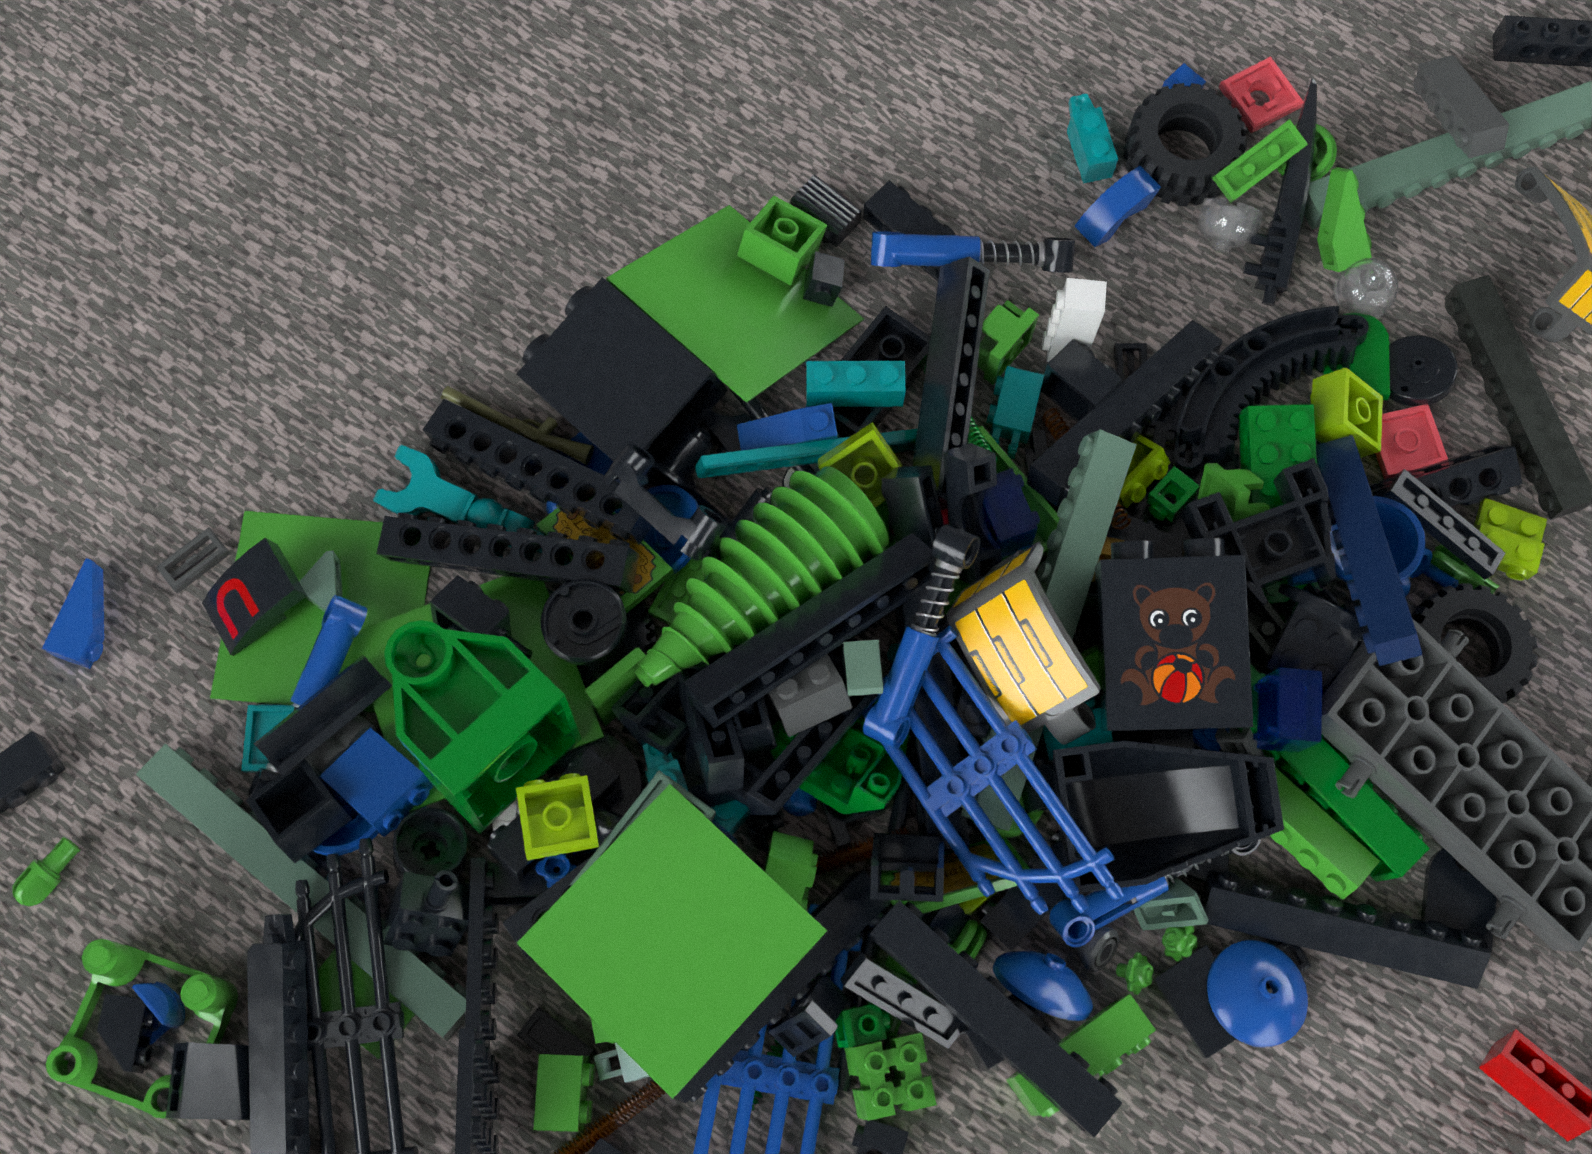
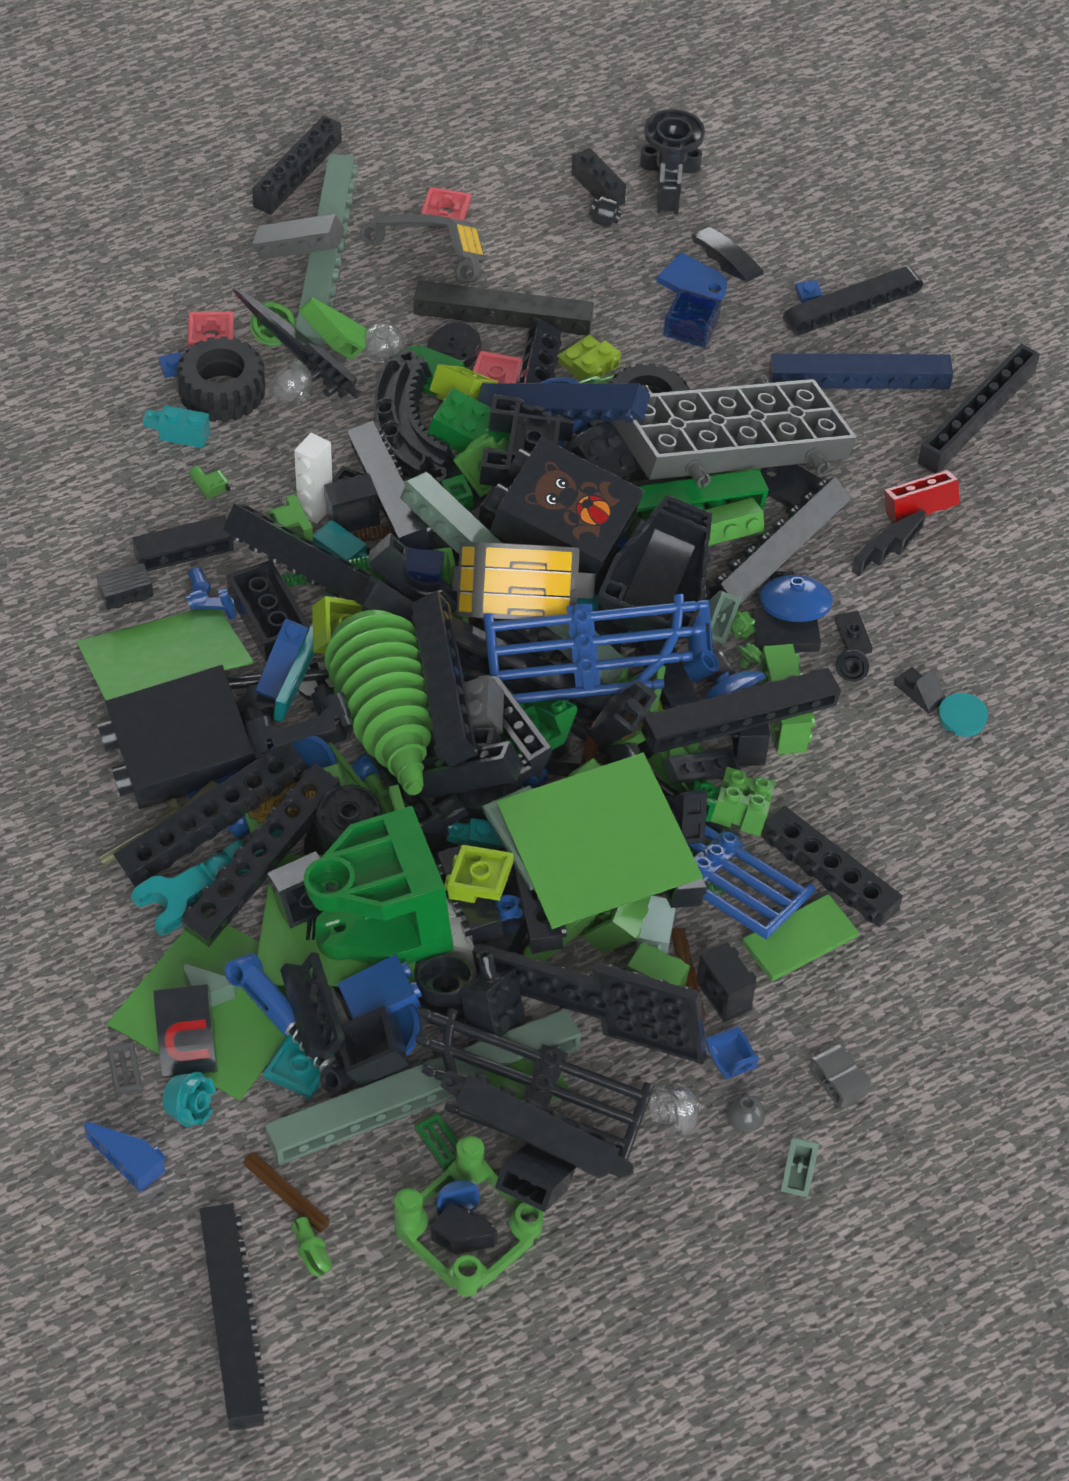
camera: 65 degrees left, 20 degrees down
(110, 809) = (286, 1191): none -> reddish brown axle
(167, 646) = (188, 1098): none -> teal cone
(219, 961) = (419, 1128): none -> green tile
(781, 240) = (134, 612): bright green brick -> none
(823, 279) = (177, 605): black brick -> none
(855, 295) = (199, 599): none -> blue pin
(855, 383) = (274, 607): teal brick -> none
(862, 667) = (482, 664): sand green slope -> none
(889, 718) = (485, 631): piece -> none
(900, 249) = (193, 546): piece -> none
(1030, 218) = (210, 484): none -> bright green piece
(1117, 203) = (239, 432): blue brick -> none
(1198, 1116) = (852, 665): none -> black brick
(1256, 1092) = (853, 632): none -> black plate
(1260, 161) = (269, 340): bright green plate -> none
(1289, 710) = (646, 473): clear blue container -> none
(1446, 525) = (575, 370): black plate -> none
(1447, 1078) = (893, 539): none -> black slope

